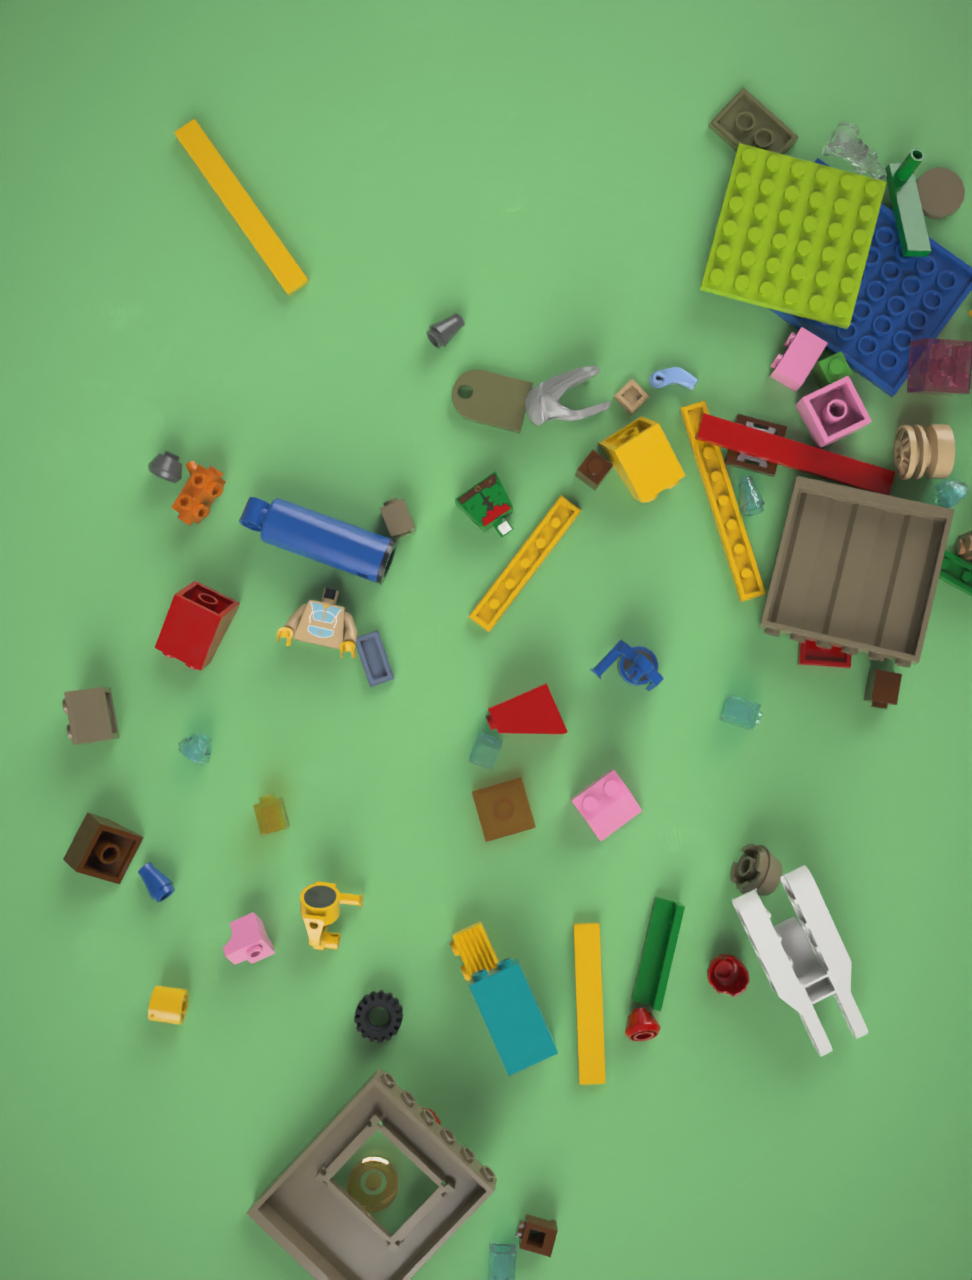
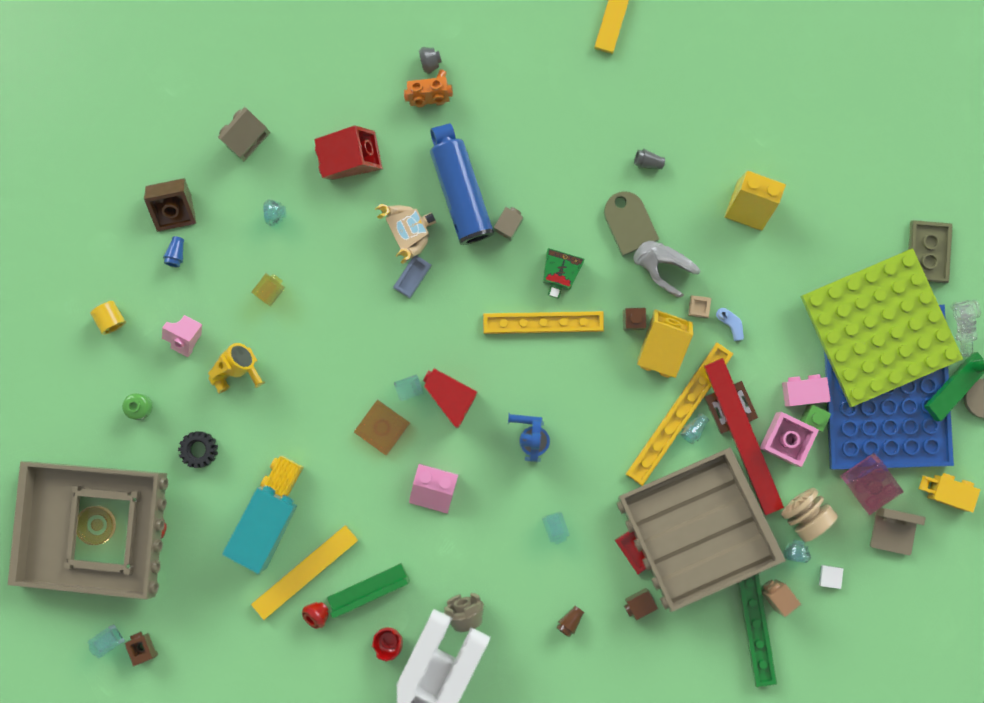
camera: 55 degrees right, 0 degrees up
(285, 1045) = (137, 406): none -> bright green head
(569, 257) = (754, 200): none -> yellow slope
(846, 772) = (570, 621): none -> reddish brown cone

